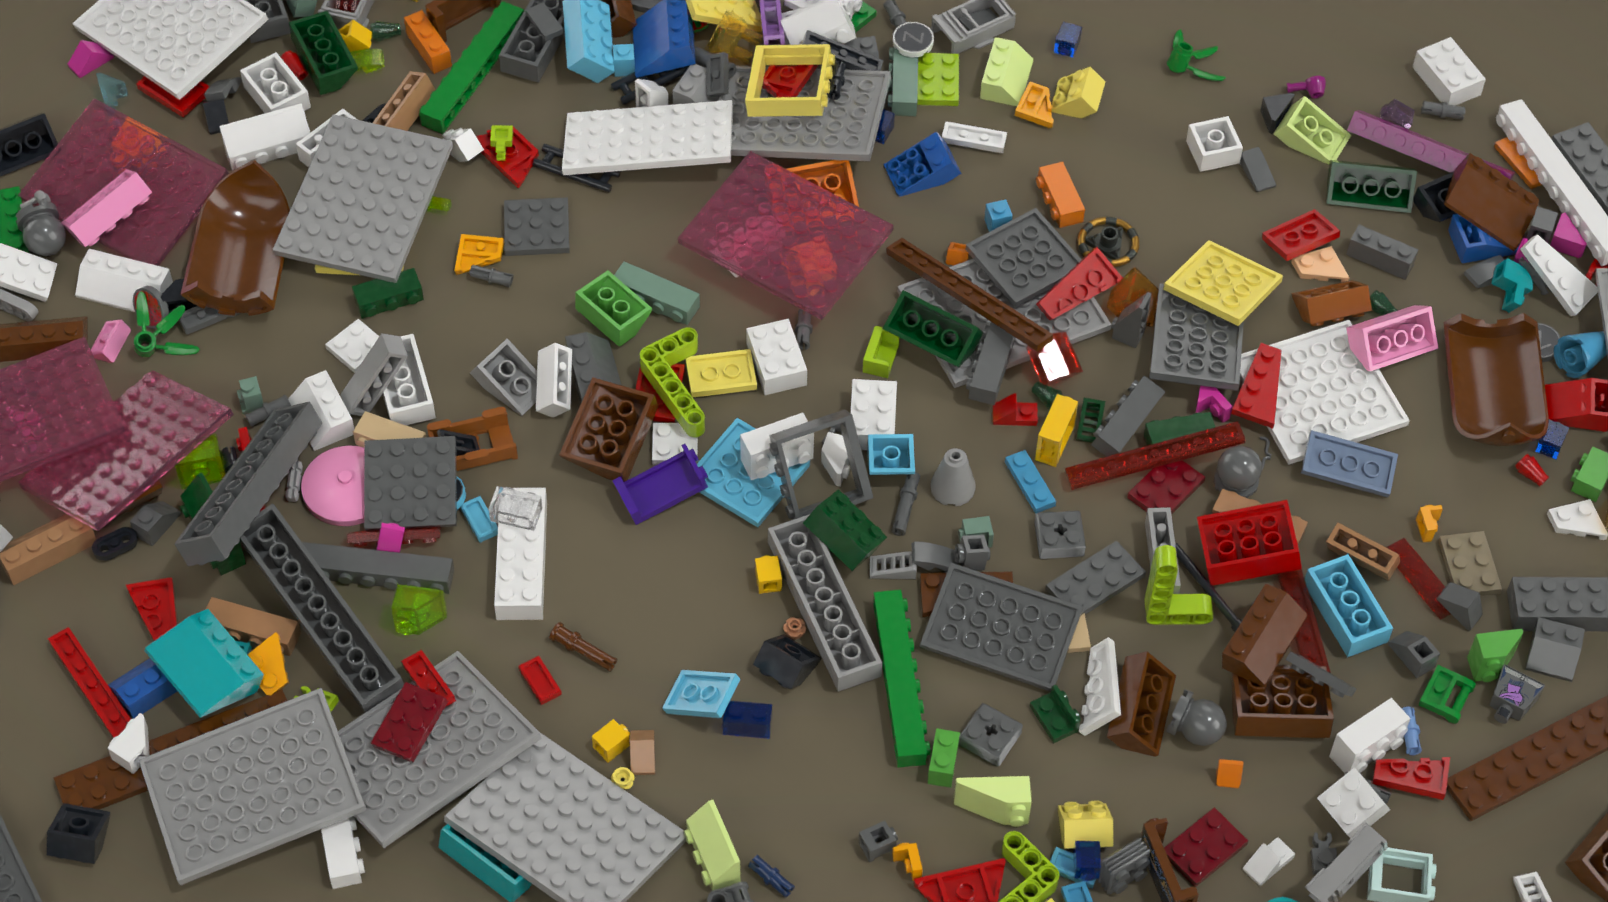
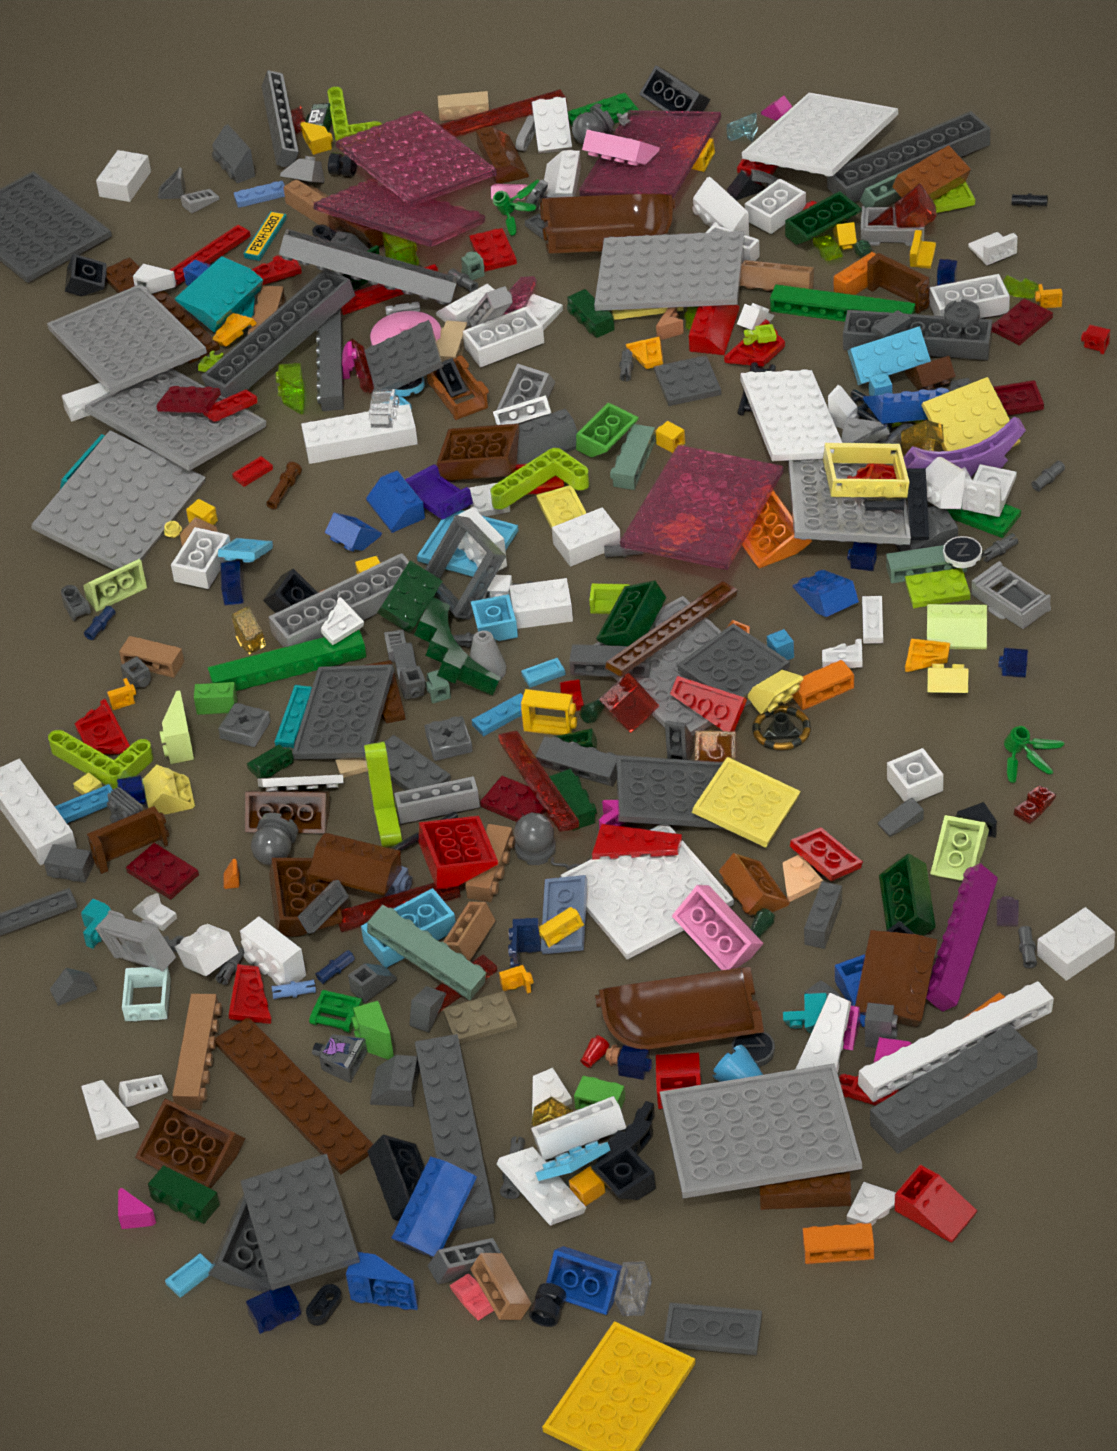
camera: 85 degrees right, 10 degrees down
(77, 614) = (265, 236): none -> tile
(217, 372) = (493, 249): none -> red plate
(324, 355) = (521, 293): none -> clear pink wing
(438, 224) = (669, 324): none -> nougat slope
(467, 191) = (712, 329): none -> red slope
(634, 253) = (670, 436): none -> yellow brick
(655, 532) = (395, 502): none -> blue slope
(694, 583) = (351, 532): none -> blue slope
(697, 745) = (198, 558): none -> white brick
(843, 709) = (247, 630): none -> clear yellow slope
(854, 815) = (156, 656): none -> medium nougat brick
(871, 602) = (341, 622): none -> white wing
(904, 514) = (443, 648): none -> dark green arch
(974, 434) = (543, 672): none -> medium azure tile
(983, 683) = (293, 716): none -> teal tile
(1020, 169) = (850, 655): none -> white wing
(1079, 224) = (774, 691): none -> light yellow slope
(1256, 66) = (1037, 802): none -> clear red slope
(1314, 85) = (1021, 845): magenta bar -> none
(1373, 466) = (560, 926): none -> yellow panel
(1382, 685) = (335, 966): none -> dark blue axle
(1394, 508) = (523, 938): none -> dark blue bracket
(1403, 585) = (426, 952): none -> sand green brick
(1491, 834) = (196, 1051): none -> medium nougat brick
(1539, 452) = (613, 1054): none -> nougat plate

